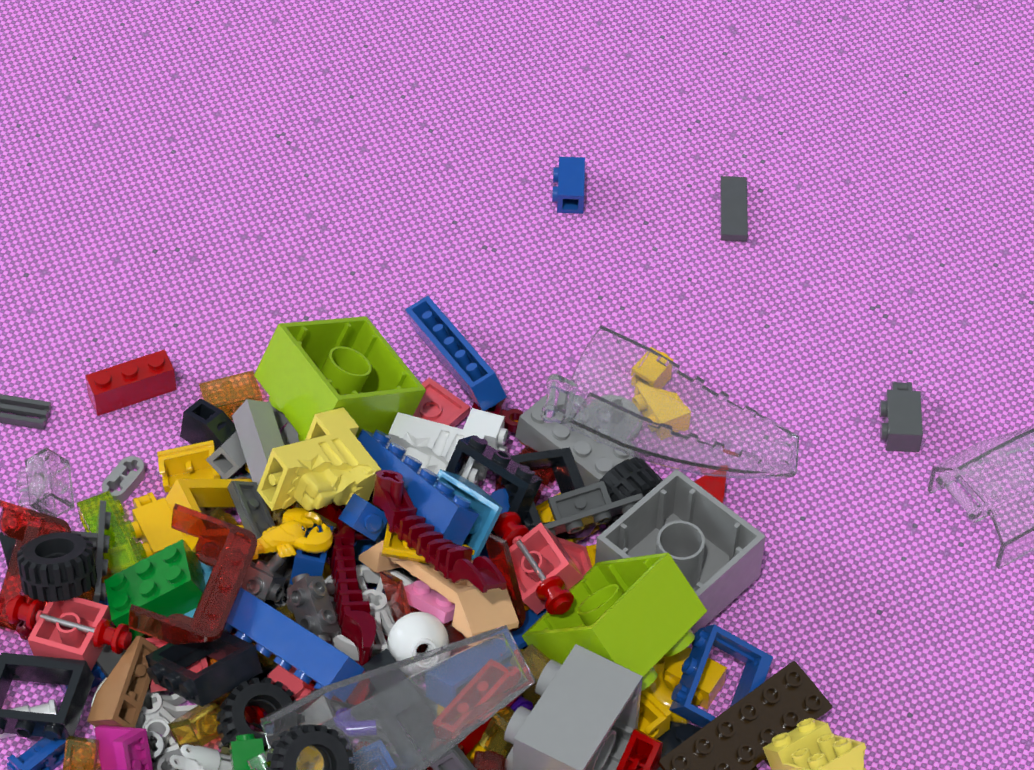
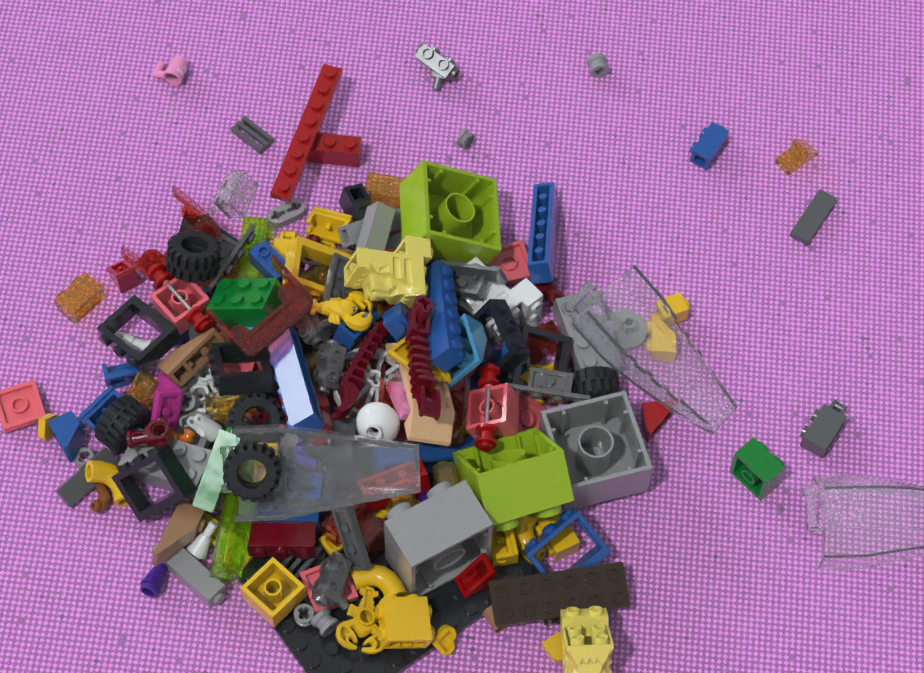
camera: 30 degrees right, 10 degrees up
(97, 373) = (306, 133): none -> red plate
(145, 535) = (260, 258): none -> blue brick
(202, 234) = (440, 67): none -> brick
(286, 299) = (465, 139): none -> light grey bush
(386, 155) = (597, 65): none -> light grey wheel
(417, 429) = (472, 278): none -> dark grey bracket
(670, 156) = (796, 156): none -> clear yellow slope
(864, 491) = (757, 468): none -> green brick

